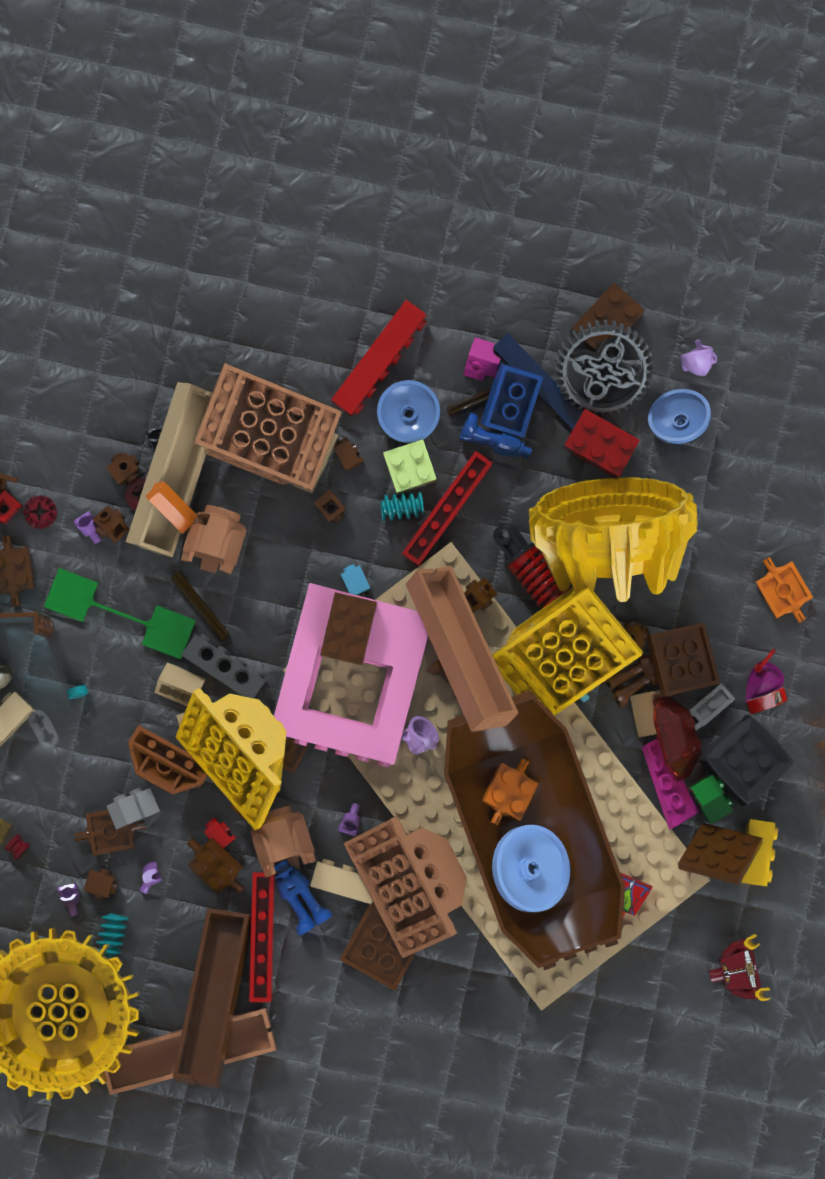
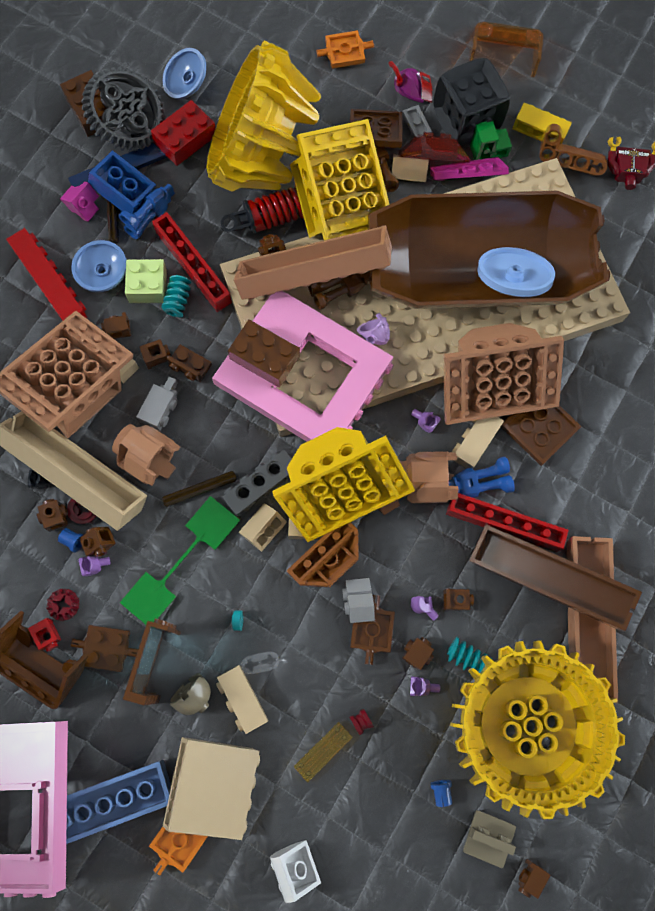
camera: 80 degrees left, 10 degrees down
(106, 495) = (70, 539): none -> blue bush
(170, 901) = (451, 603): none -> reddish brown brick
(171, 506) = (100, 477): orange piece -> none
(215, 866) = (432, 544): reddish brown plate -> none
(219, 833) = (405, 533): red brick -> none
(275, 532) = (158, 405): none -> light grey hinge
(333, 546) = (189, 363): none -> reddish brown bracket
(355, 580) = (220, 351): medium azure brick -> none
(509, 792) = (445, 273): orange plate -> none
(699, 360) = (146, 50): lavender helmet -> none
(720, 853) = (540, 139): reddish brown plate -> none
(724, 910) = (574, 153): none -> dark orange beam

